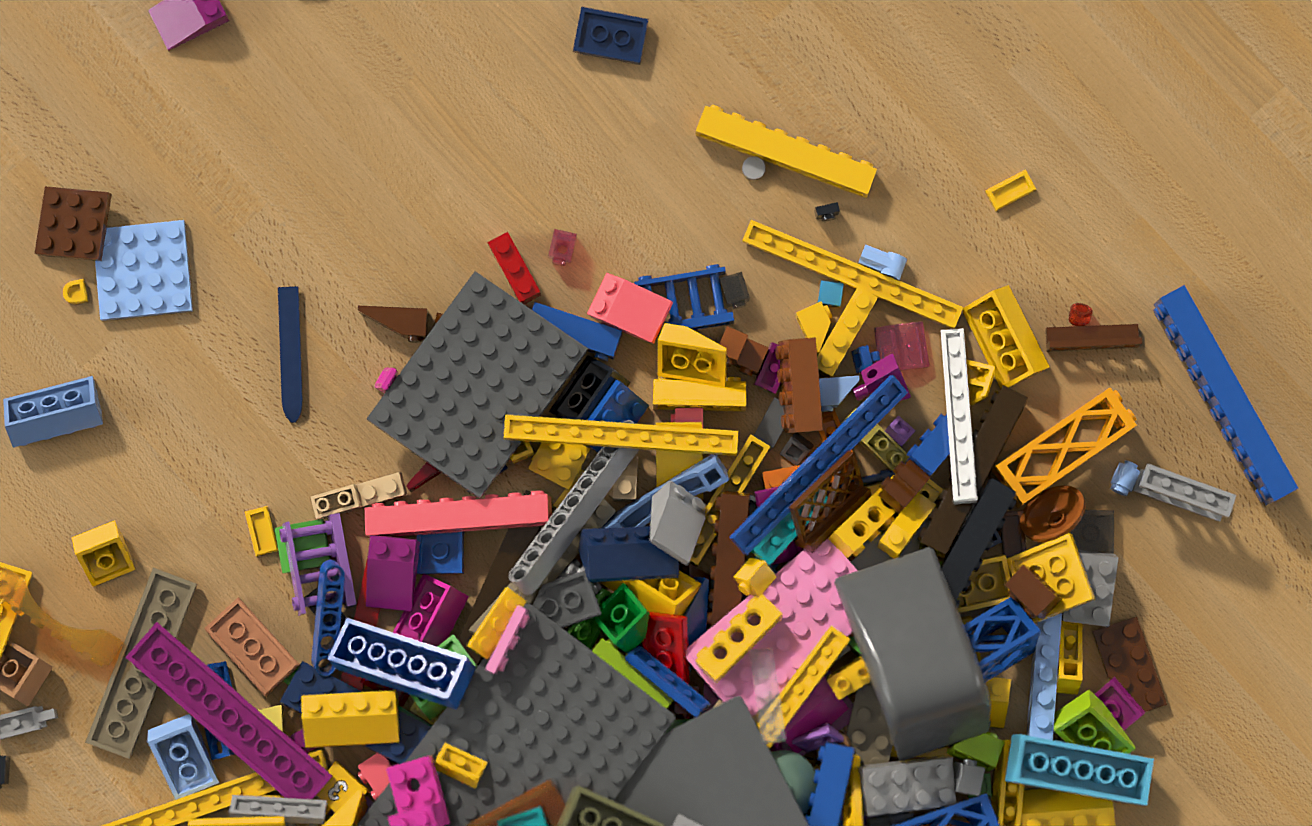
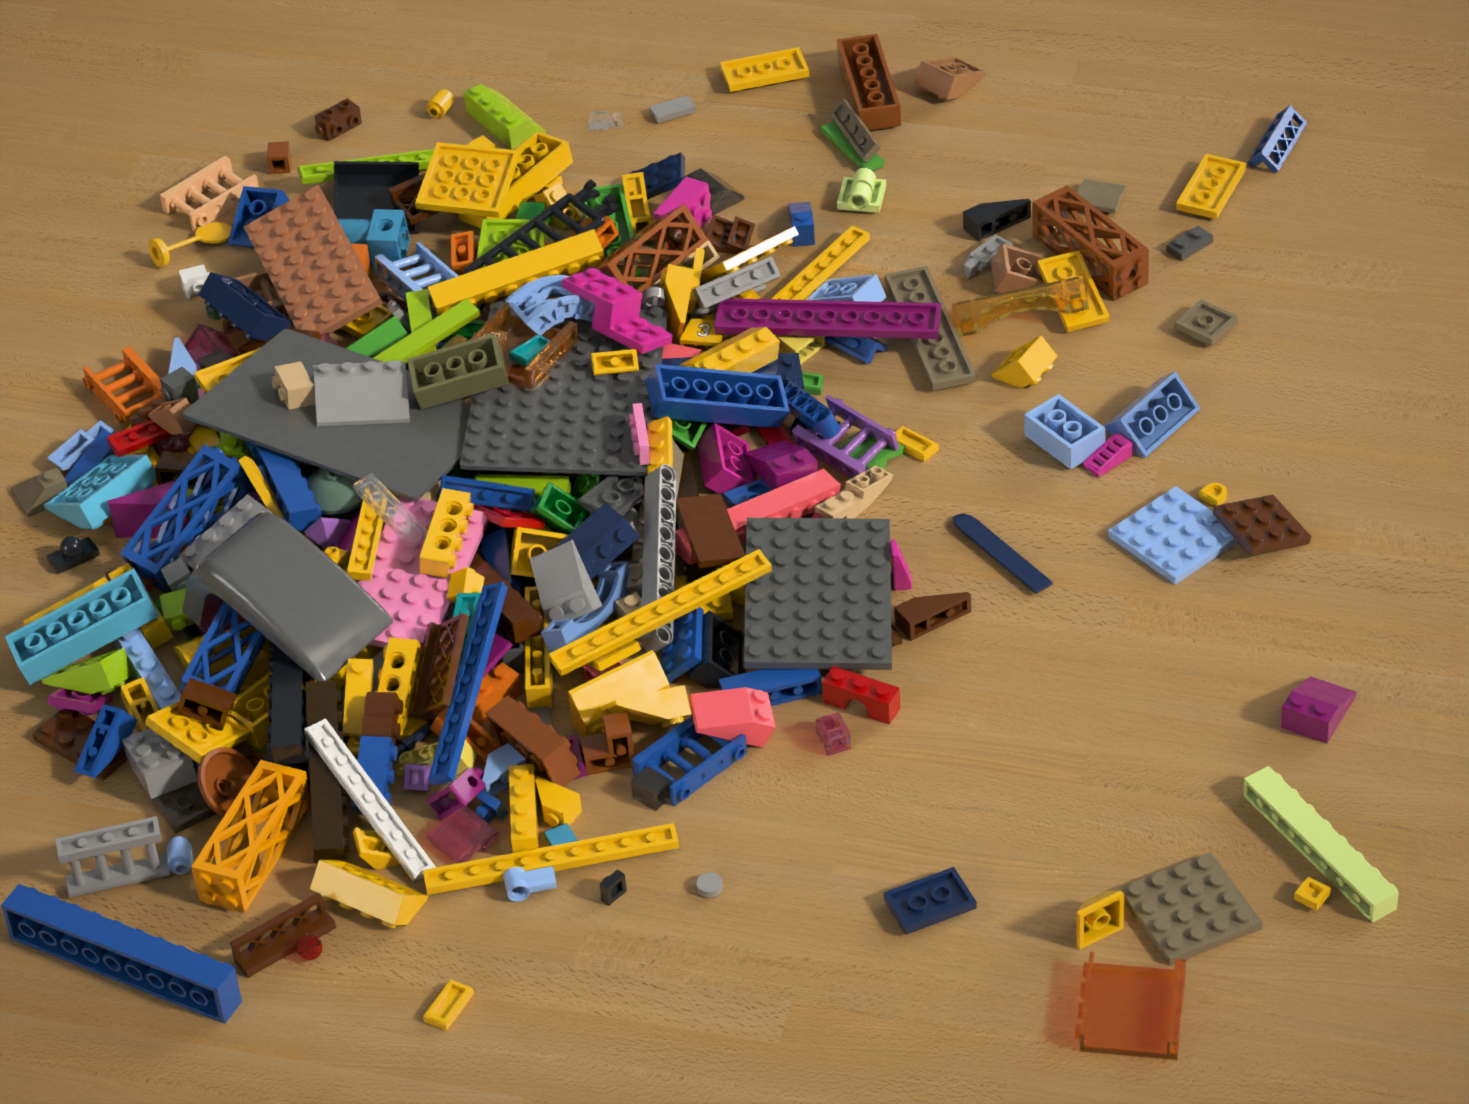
camera: 150 degrees right, 40 degrees down
(103, 389) = (1115, 444): none -> dark pink slope
(139, 439) = (1064, 431): none -> light blue brick
(252, 646) = (852, 377): nougat tile -> none
(520, 501) = (709, 530): none -> reddish brown tile
(786, 151) = (688, 907): yellow brick -> none
(1122, 633) = (105, 740): none -> blue slope

